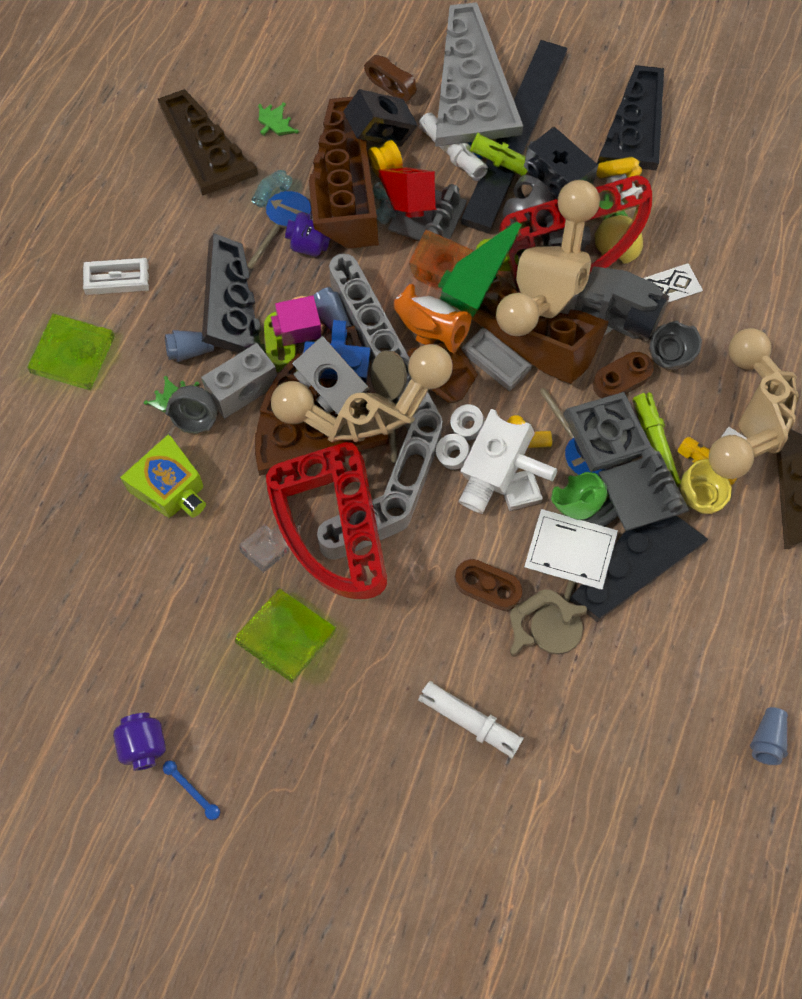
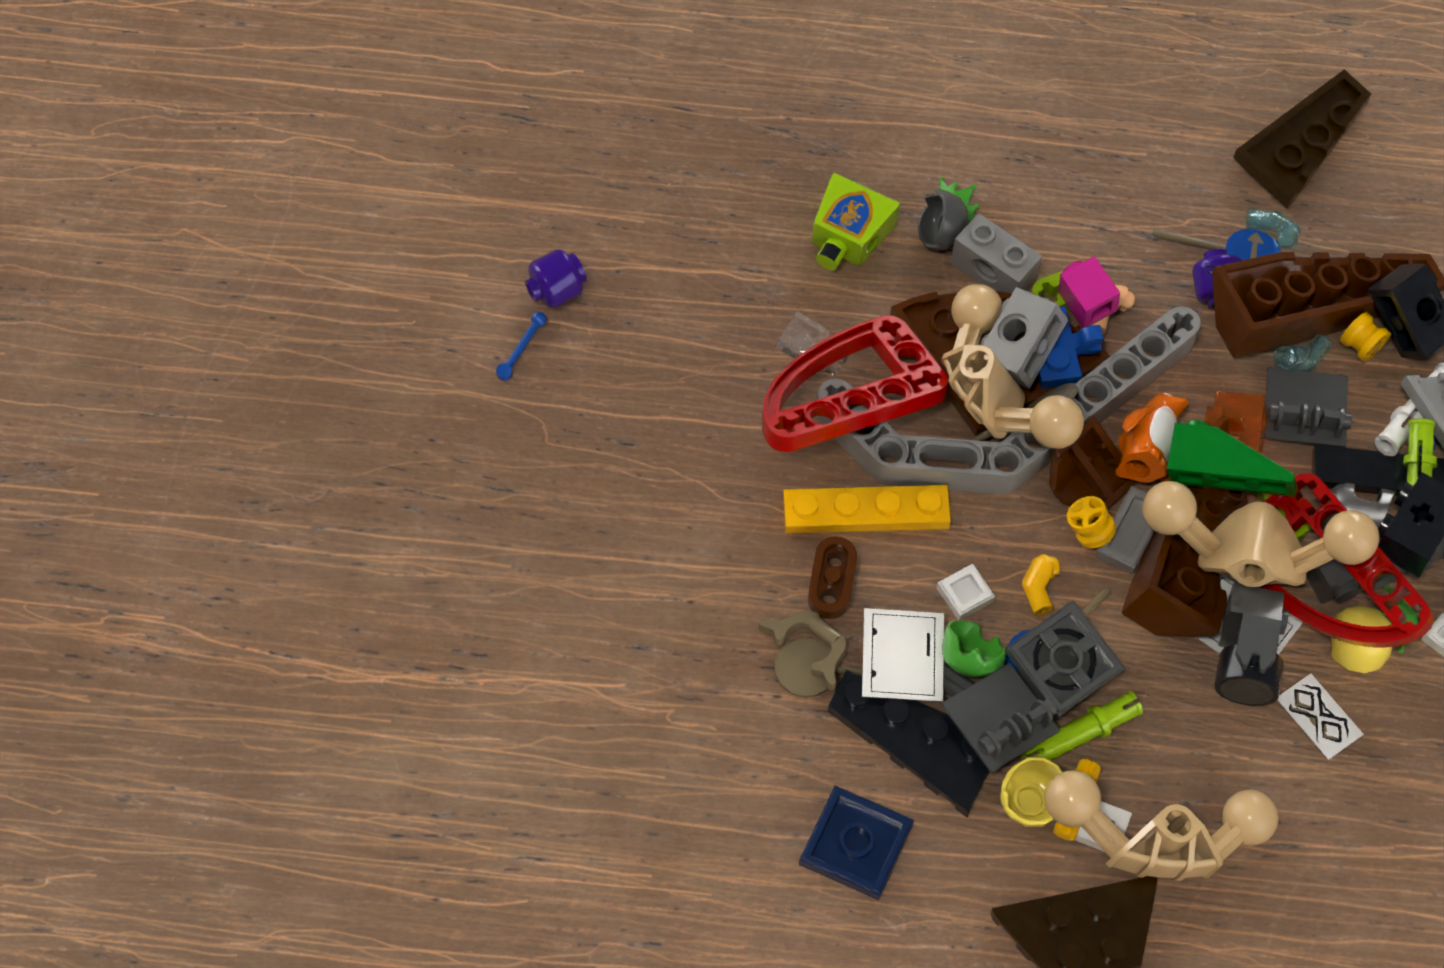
camera: 75 degrees right, 5 degrees down
(71, 351) = (976, 89): clear neon green hinge -> none
(115, 281) = (1099, 127): white tile -> none
(185, 345) = (1024, 195): sand blue cone -> none
(228, 301) = (1097, 221): black wing -> none
(274, 120) = (1374, 204): bright green piece -> none
(285, 635) = (708, 383): clear neon green hinge -> none
(330, 307) = (1125, 326): sand blue cone -> none
(410, 189) = (1321, 367): red slope -> none
(430, 544) = (866, 509): none -> yellow plate
(472, 720) = (664, 607): white pin -> none
(483, 379) = (1091, 522): none -> yellow wheel
(494, 455) = (988, 540): white piece -> none
(624, 373) = (1158, 680): reddish brown plate -> none
(675, 345) = (1220, 725): dark grey hair -> none
(715, 630) = (856, 842): none -> dark blue tile
(770, 739) = (739, 919): sand blue cone -> none

